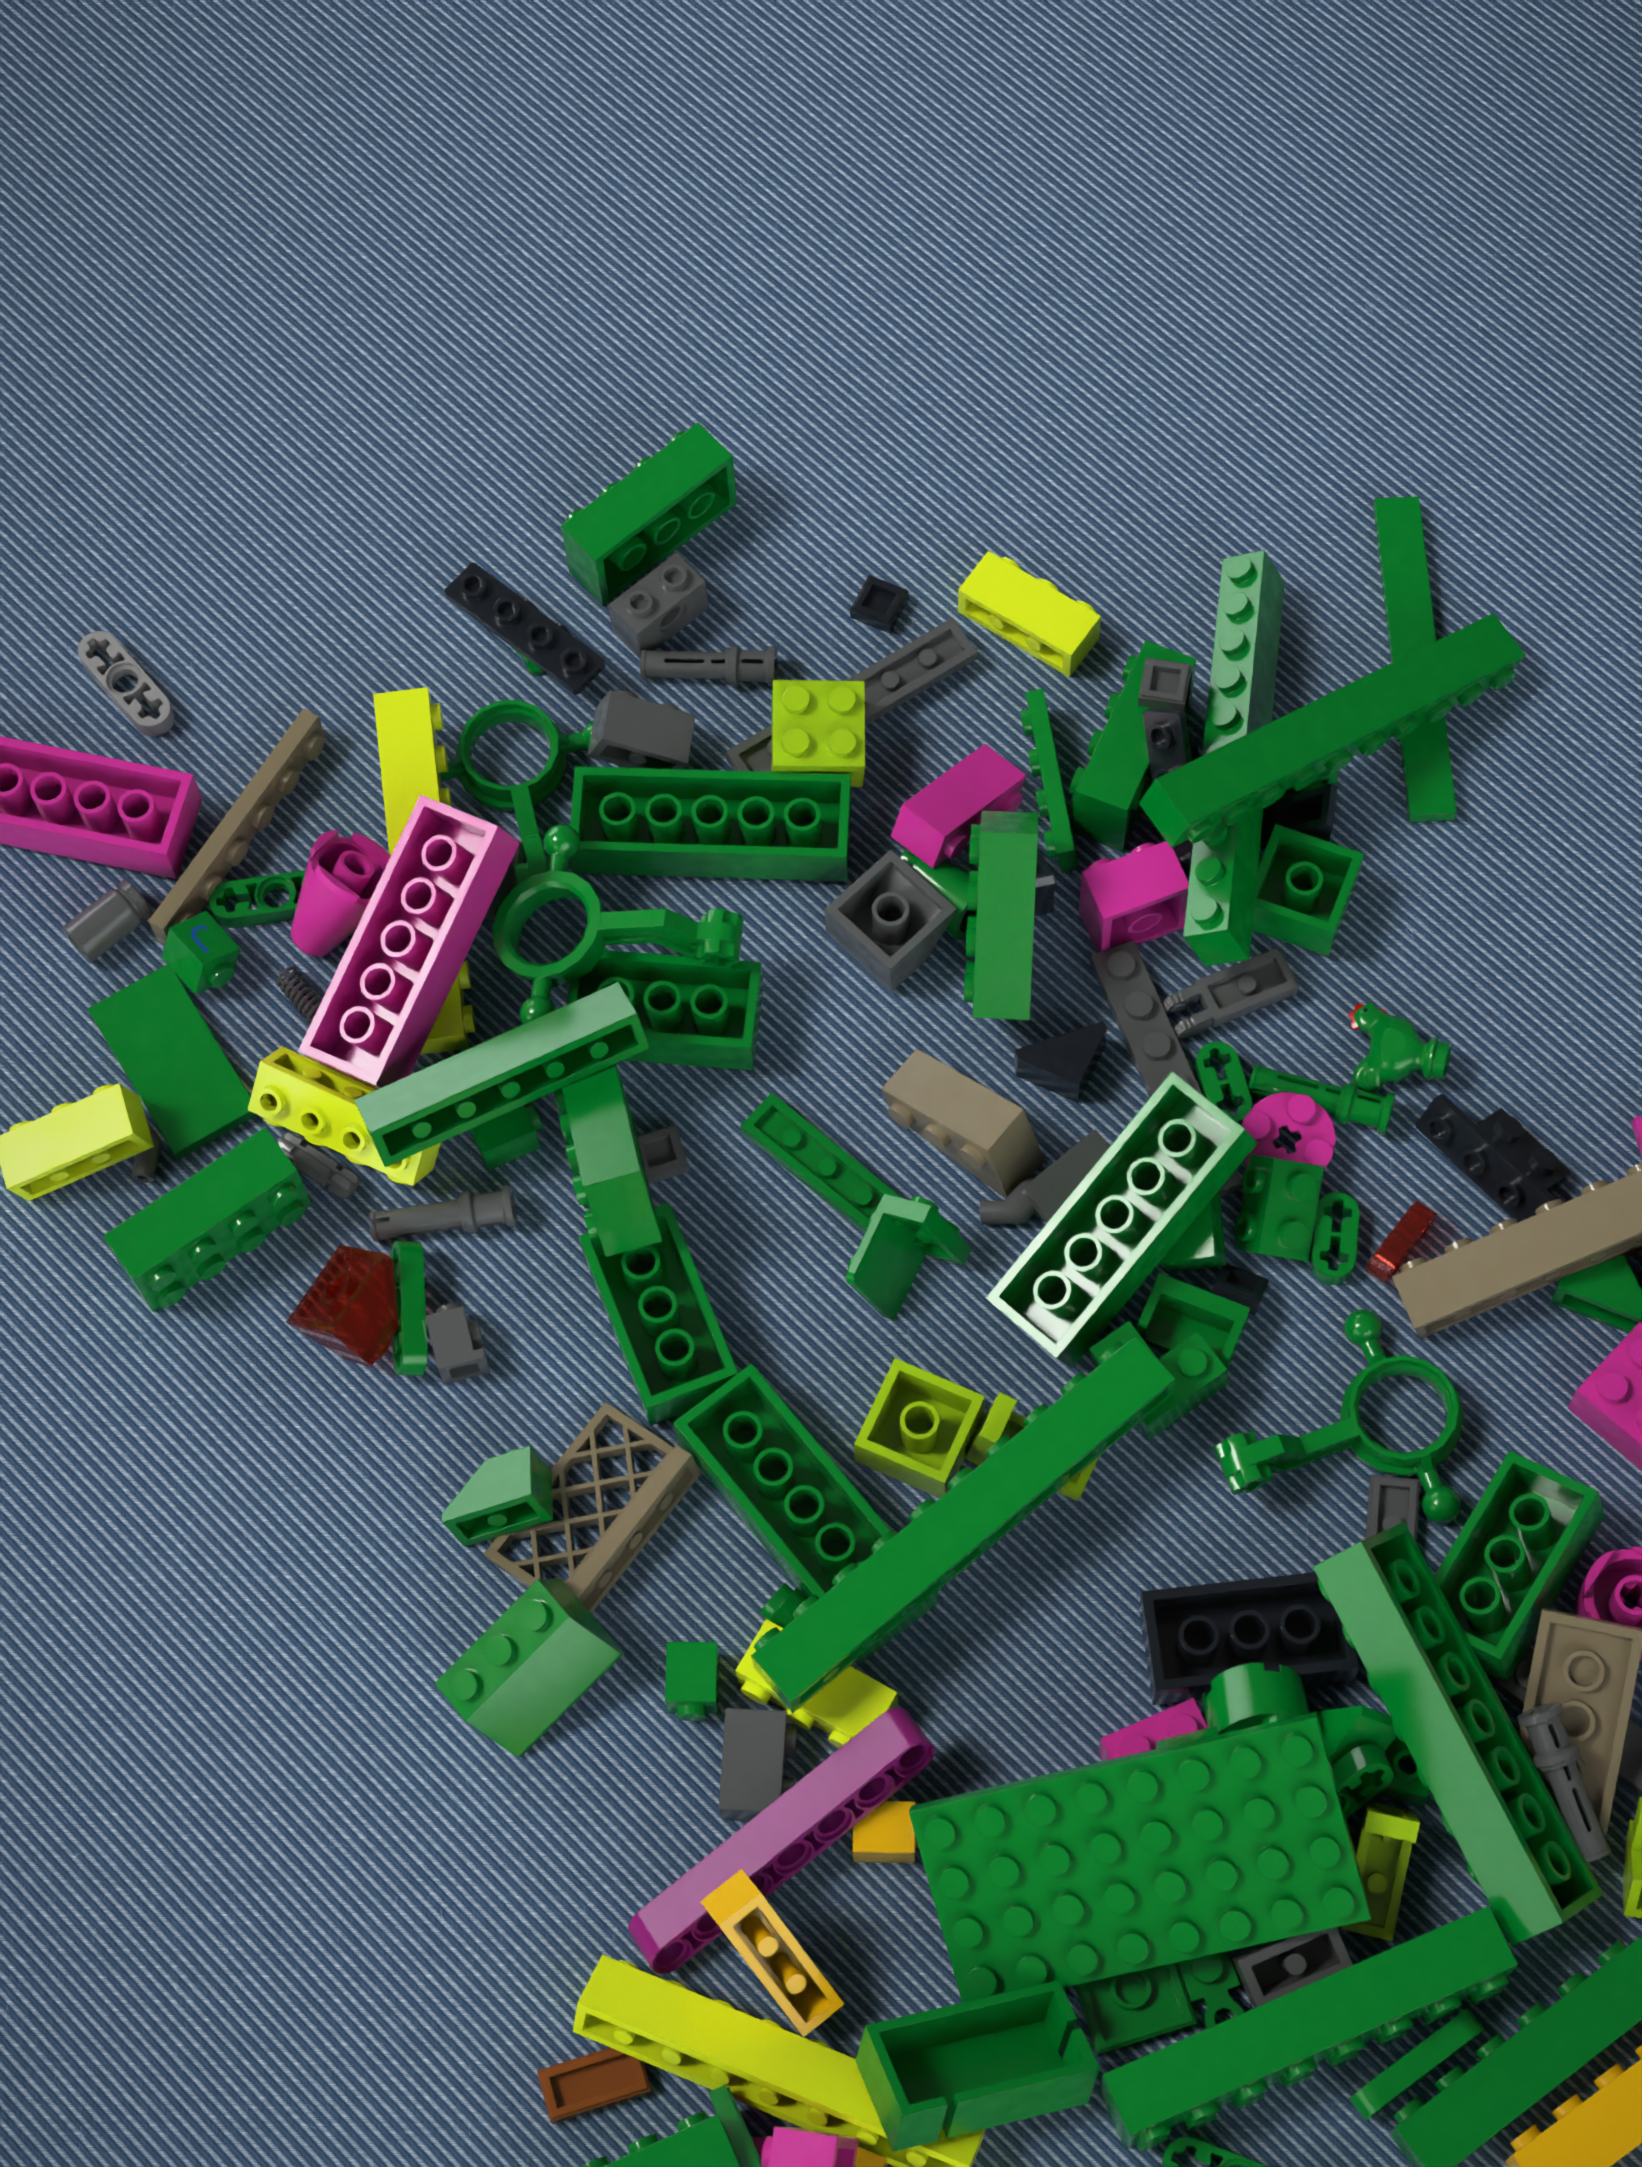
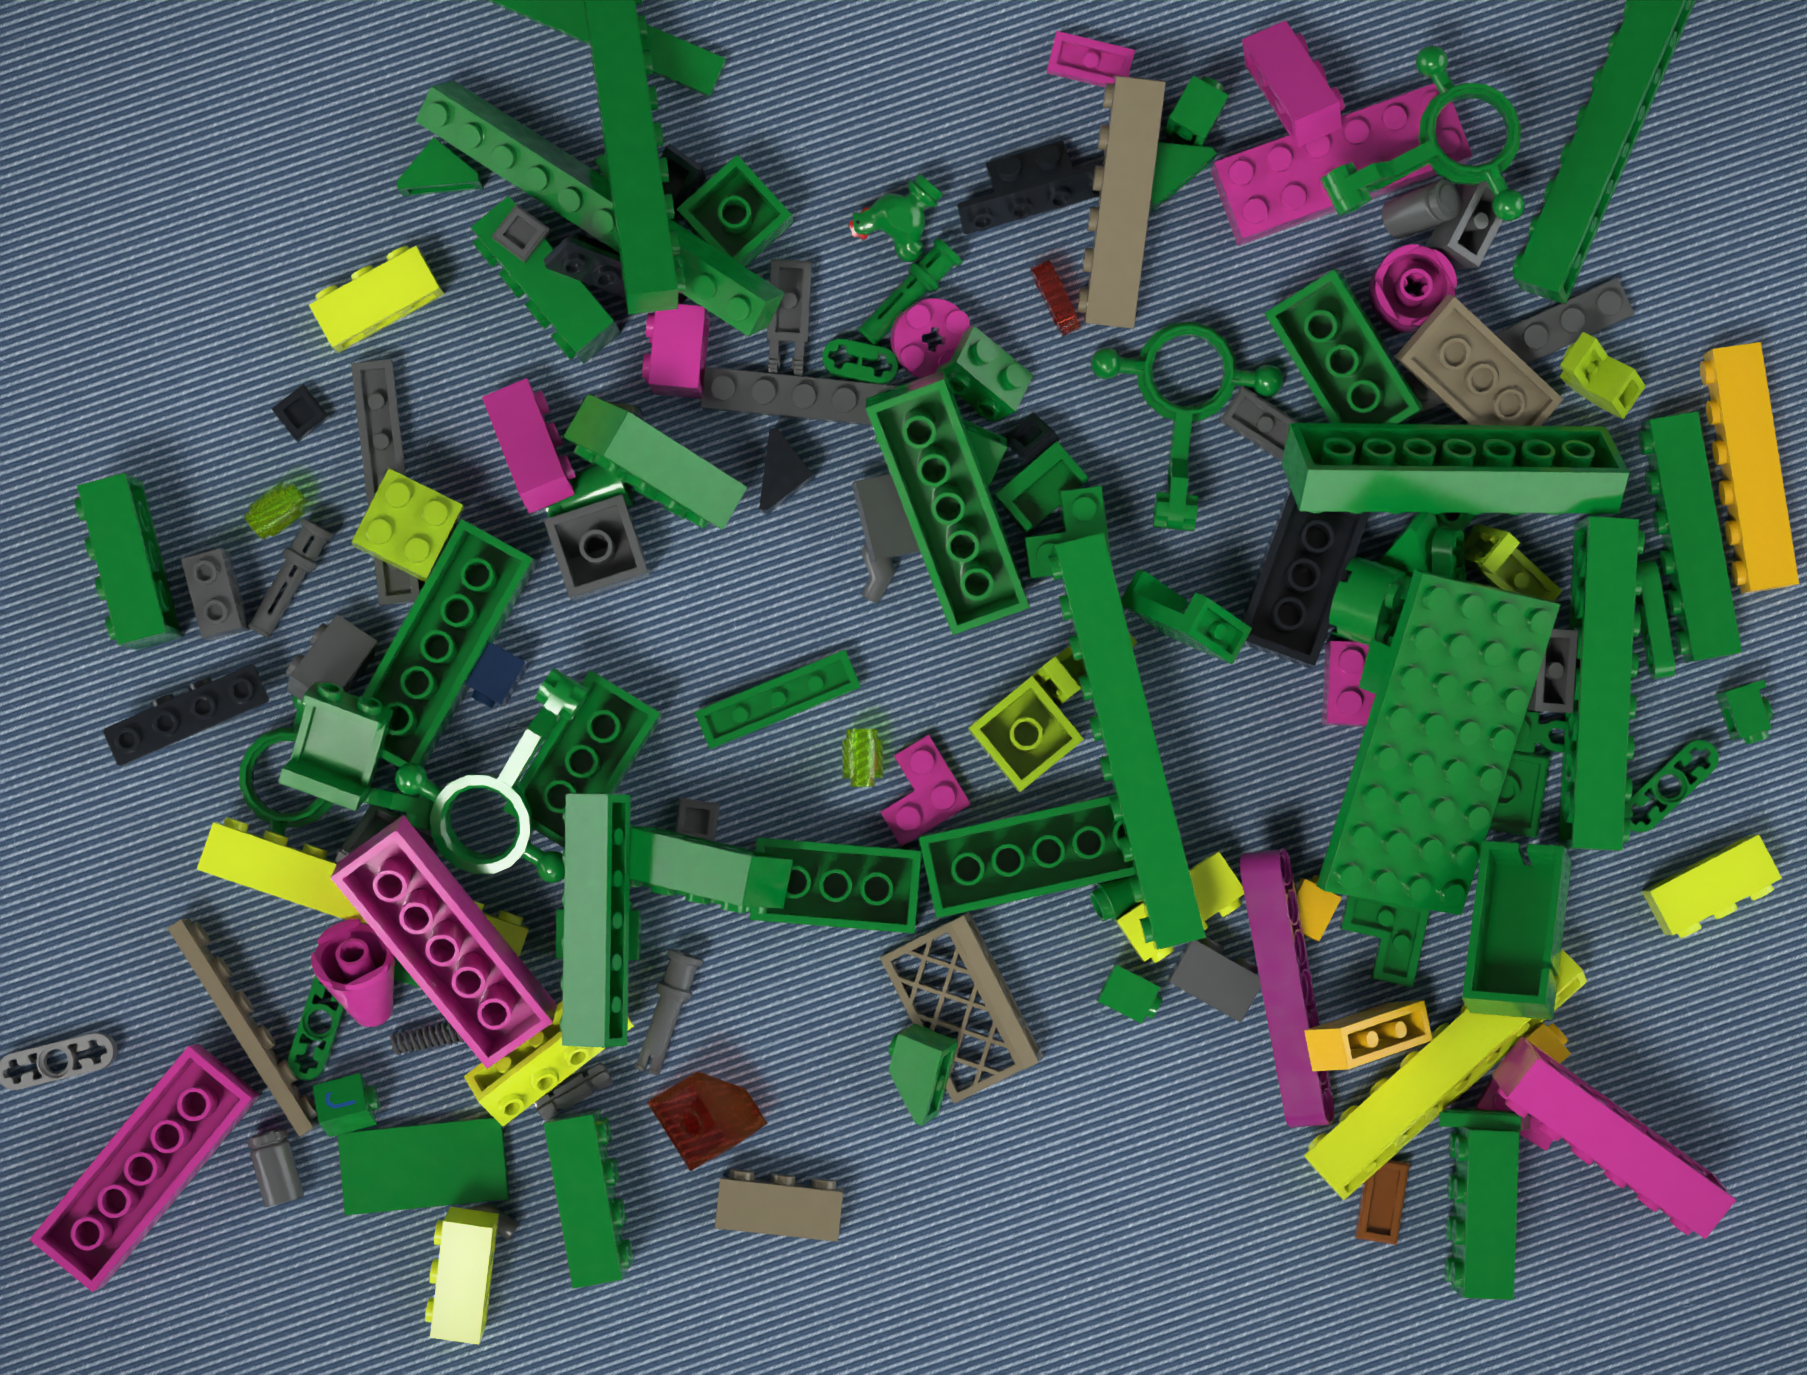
camera: 65 degrees left, 20 degrees up
(288, 1424) = (779, 1206): none -> dark tan brick
(411, 1335) = (758, 1082): green beam -> none
(456, 1344) = (777, 1049): dark grey brick -> none
(530, 1666) = (1068, 1110): green slope -> none
(561, 764) = (337, 745): none -> panel
(709, 887) = (496, 676): none -> dark blue brick
(770, 622) = (275, 510): none -> clear neon green brick
(808, 1376) = (935, 794): none -> dark pink plate
(809, 1280) = (862, 757): none -> clear neon green brick
(895, 1247) = (875, 684): green bracket -> none
(908, 1948) = (1399, 935): none -> green plate
(964, 1121) = (793, 578): dark tan wedge -> none
(1052, 798) = (518, 356): green plate -> none
(1134, 1523) = (1202, 625): none -> green panel
(1184, 607) = (437, 172): none -> green slope
(1345, 1238) = (1029, 336): green beam -> none
(1557, 1758) = (1503, 406): dark grey pin -> none

